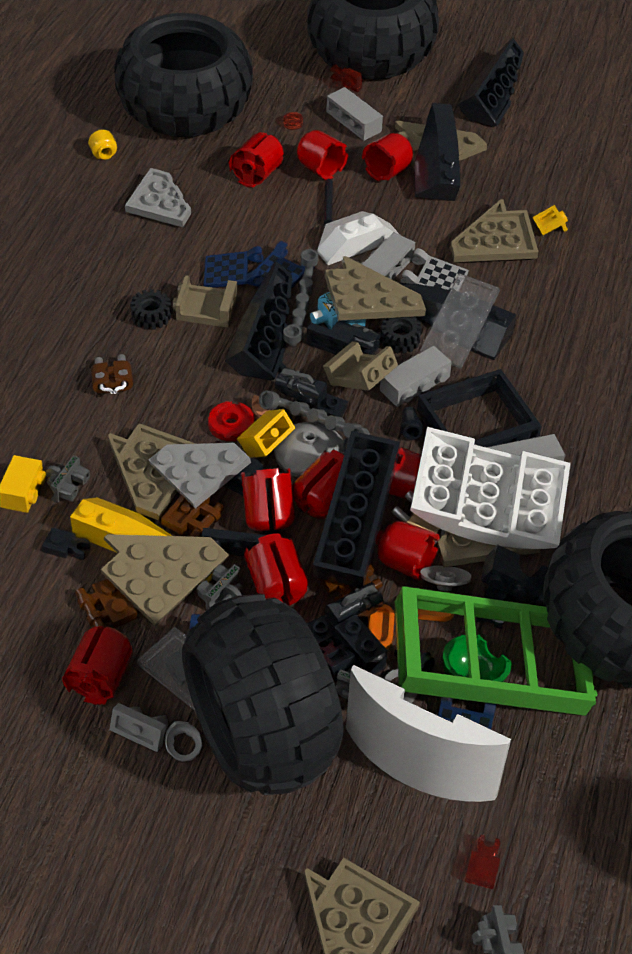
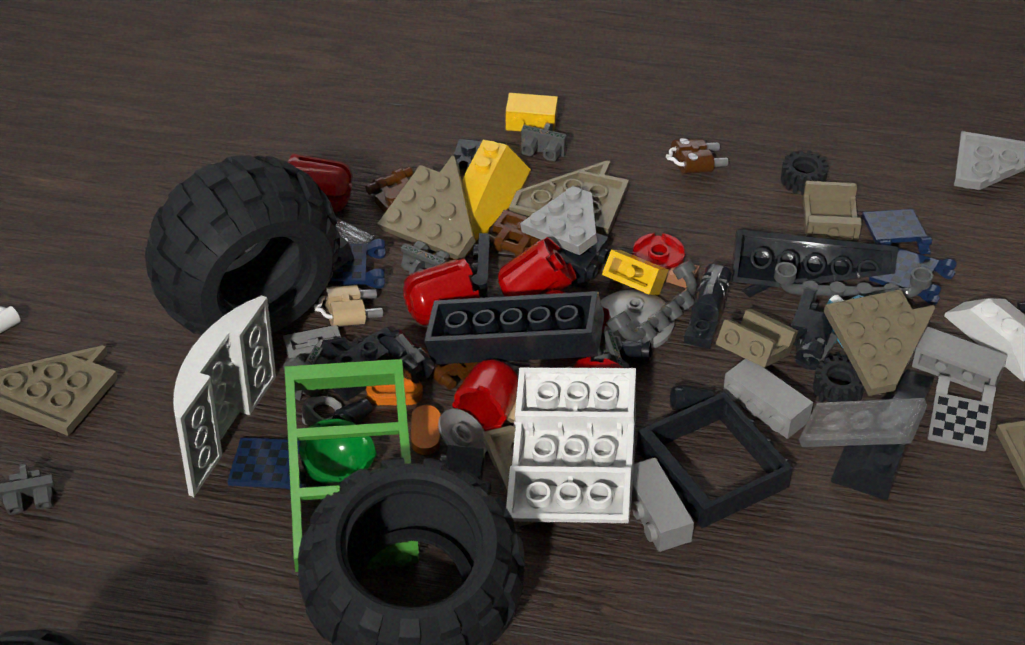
camera: 85 degrees right, 5 degrees down
(482, 864) = (110, 482): clear red plate -> none

